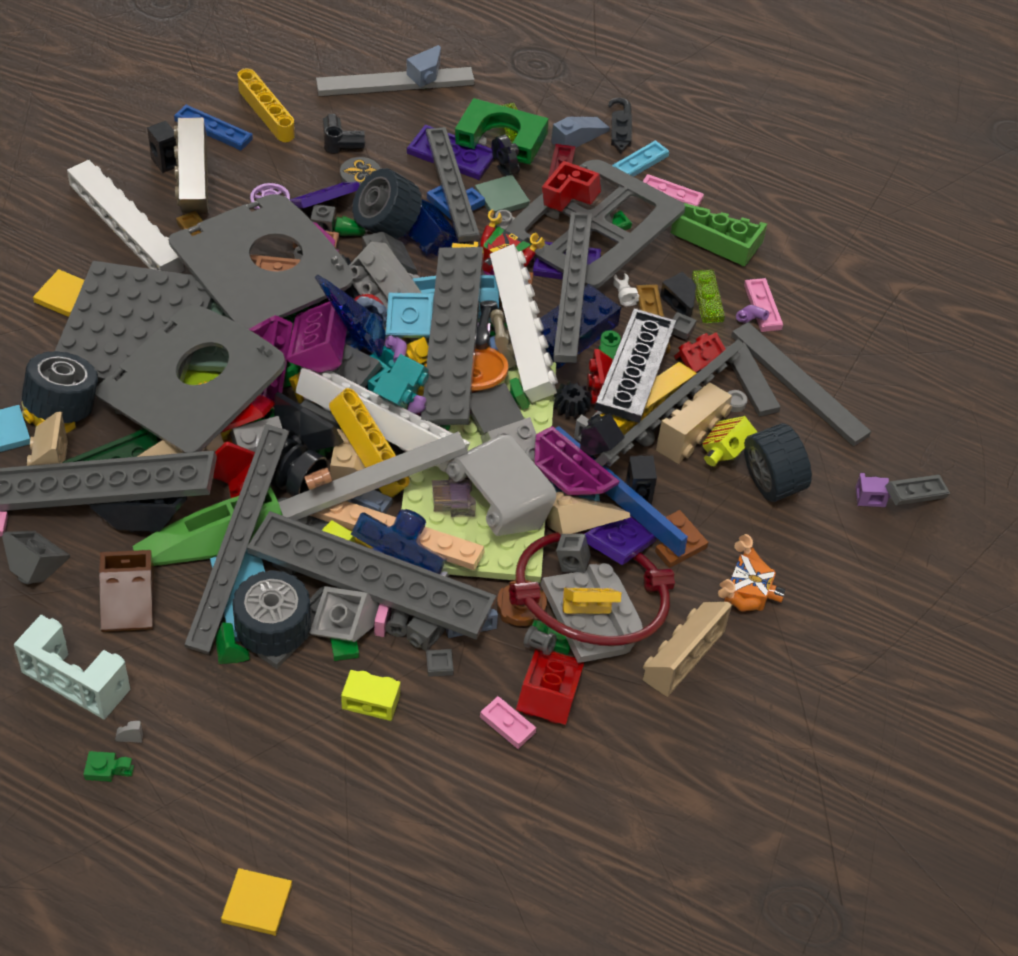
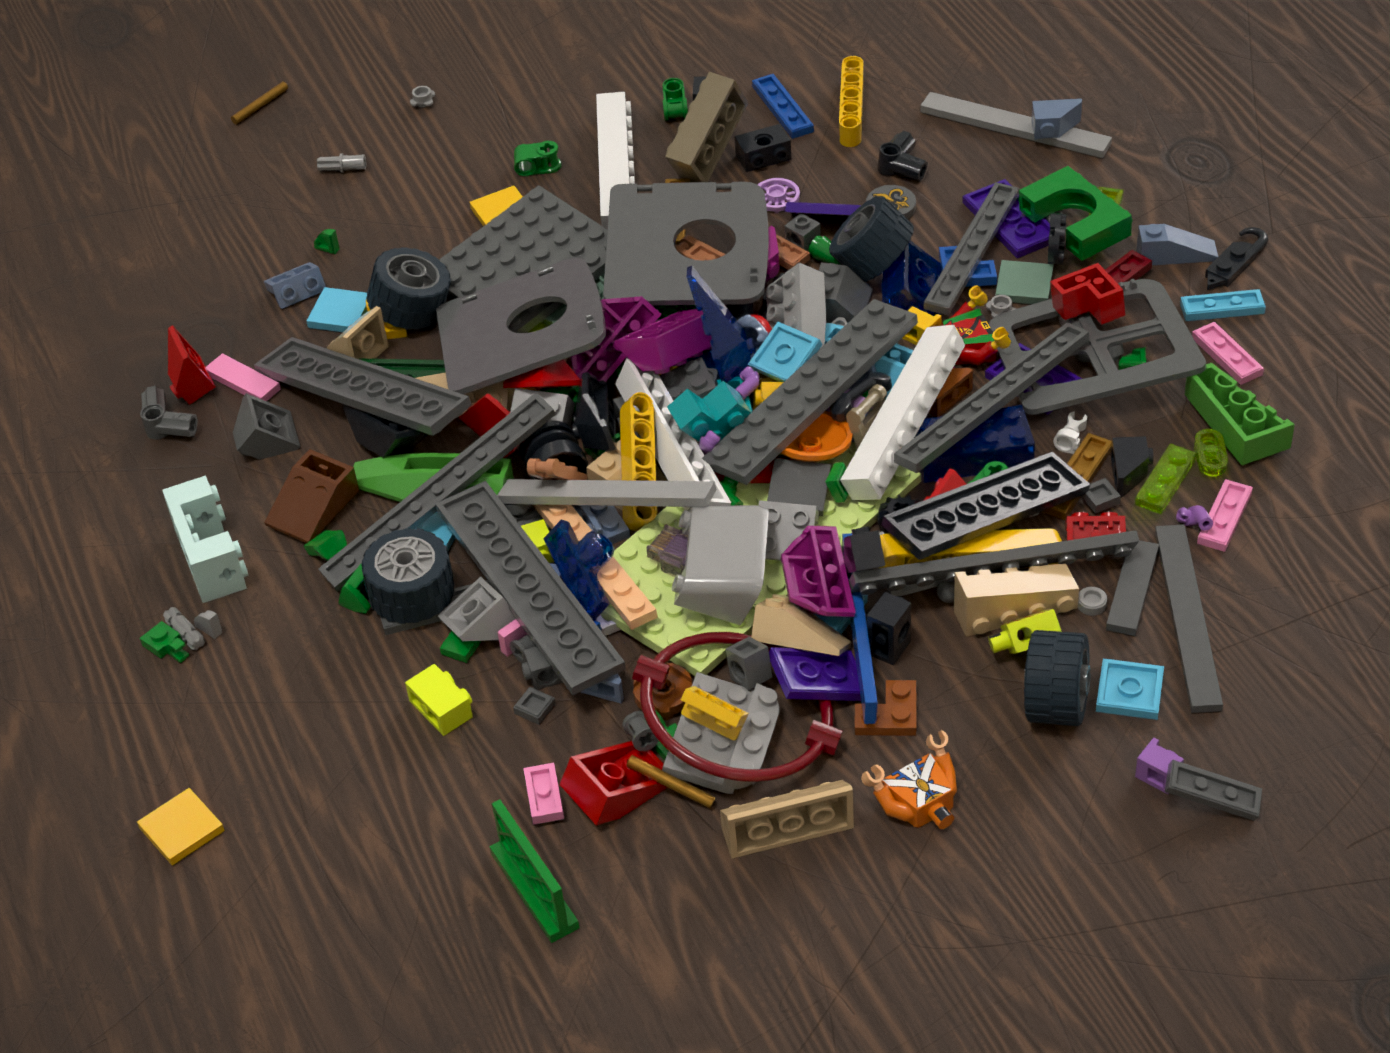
camera: 45 degrees right, 5 degrees down
(56, 241) = (534, 158): none -> green piece
(94, 744) = (184, 627): none -> light grey axle
(129, 152) = (674, 99): none -> green piece
(172, 621) = (326, 544): none -> green tile
(231, 165) = (763, 147): none -> black brick
(565, 794) = (531, 877): none -> green fence
(589, 665) = (670, 781): none -> pearl gold bar
(722, 265) = (1210, 452): none -> clear neon green plate
(817, 446) = (1130, 689): none -> medium azure tile

